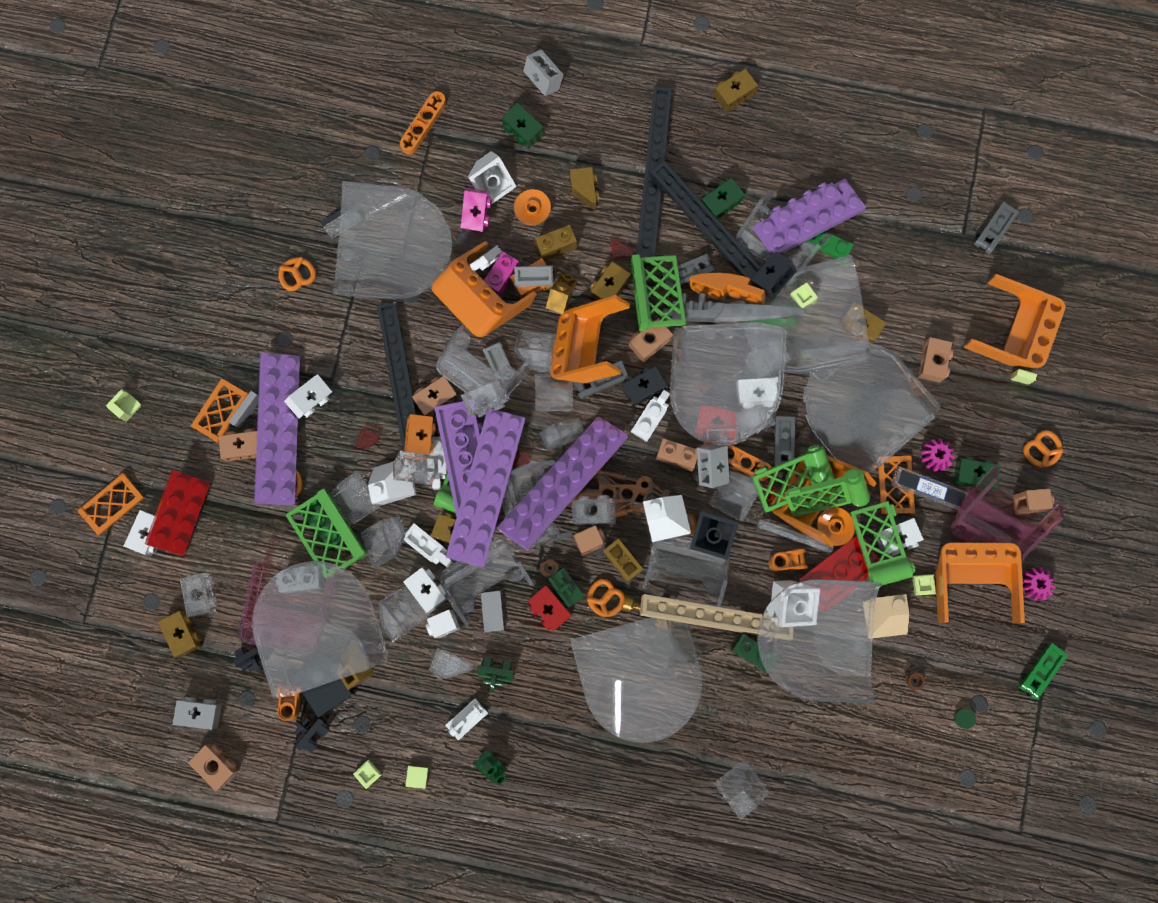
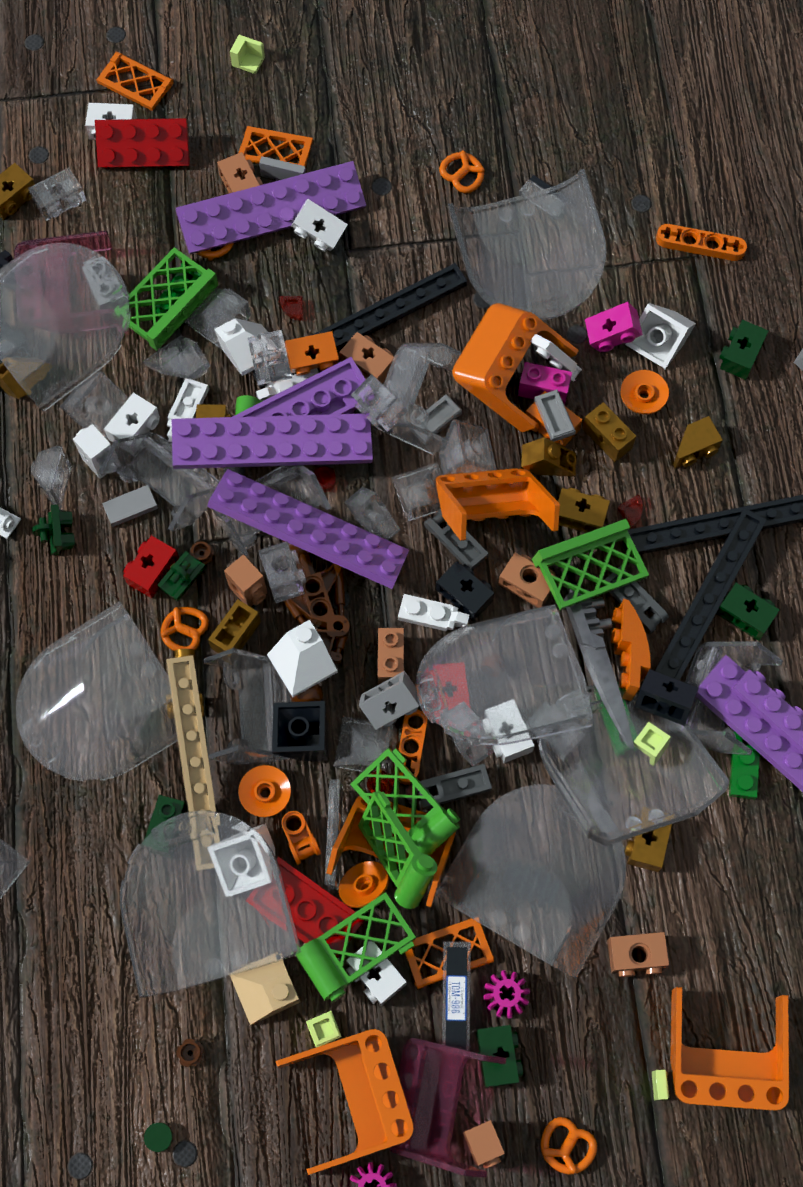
camera: 70 degrees right, 10 degrees down
(758, 573) = (255, 782): none -> orange dish

